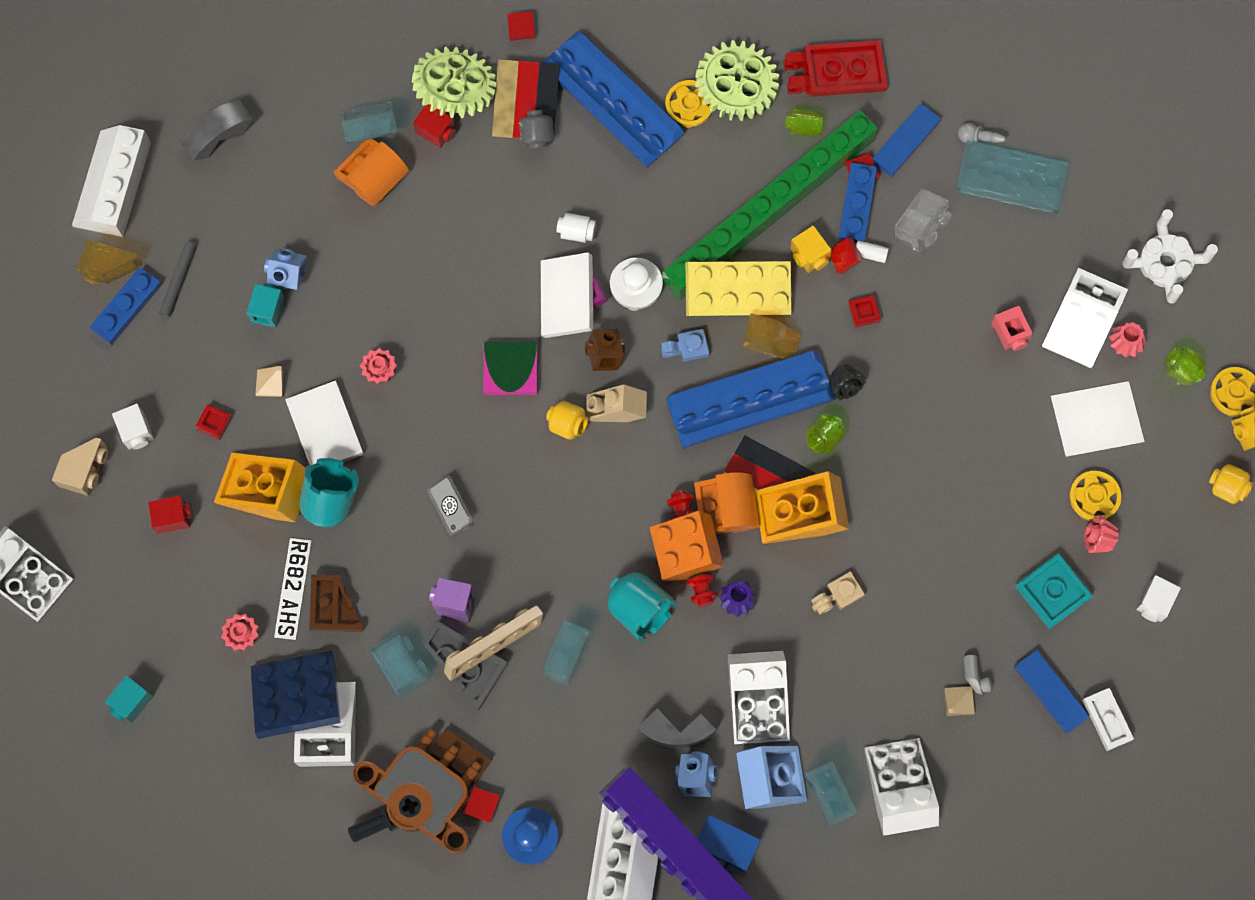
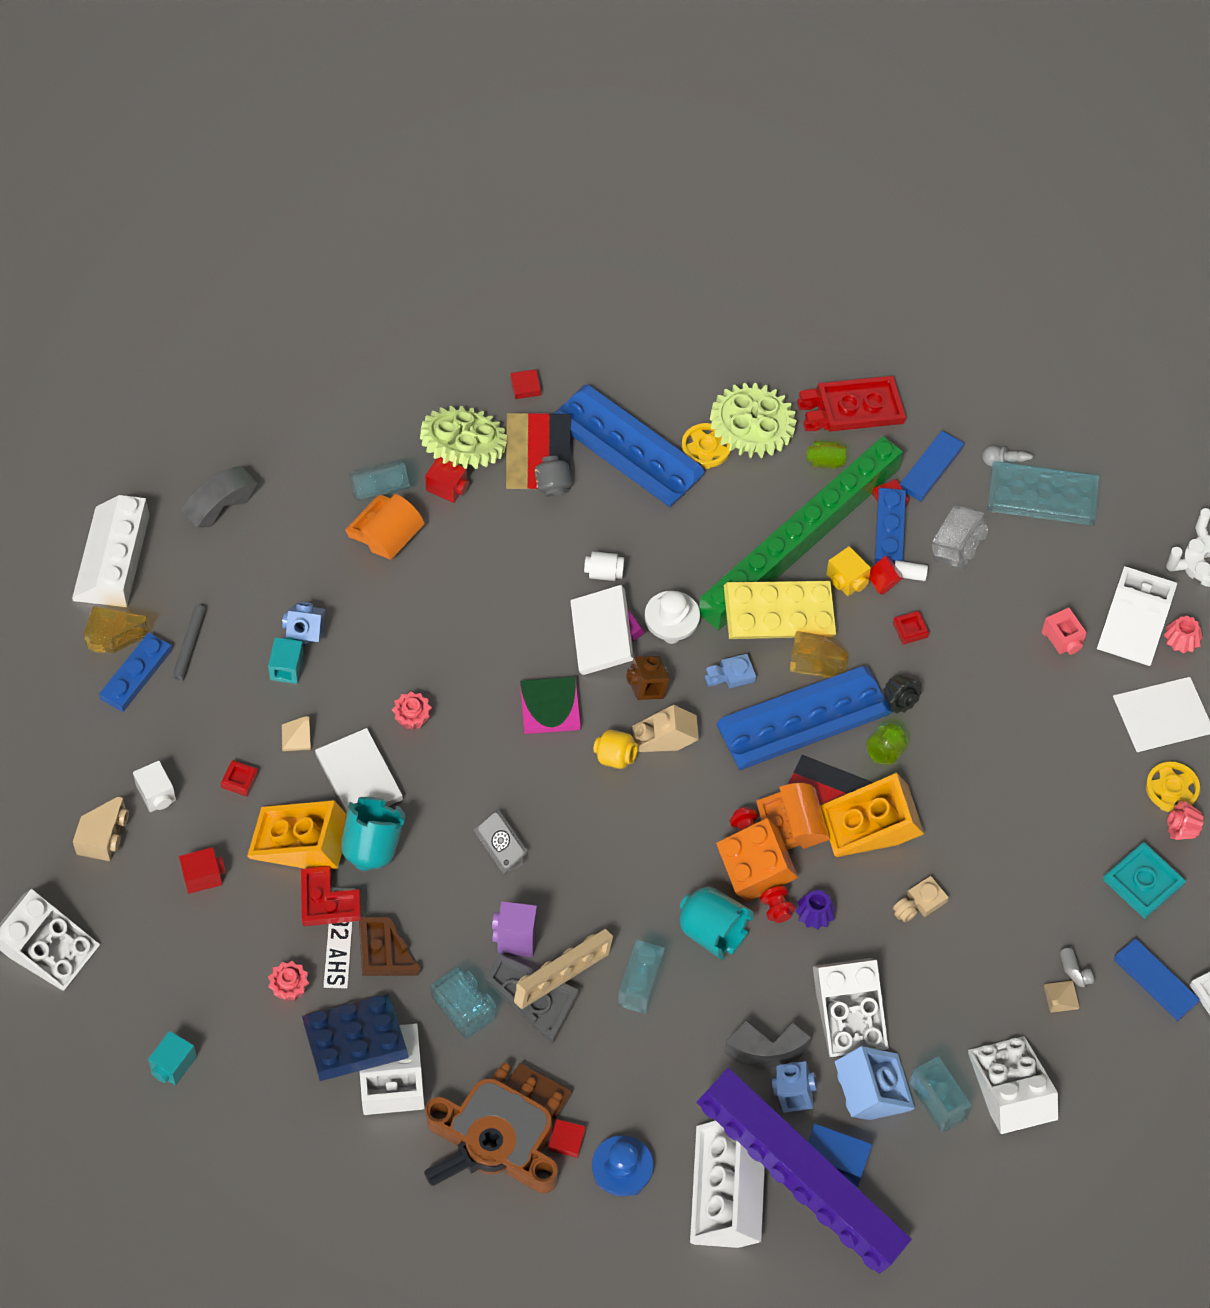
camera: 10 degrees left, 15 degrees down
(277, 557) = (322, 905): none -> red plate

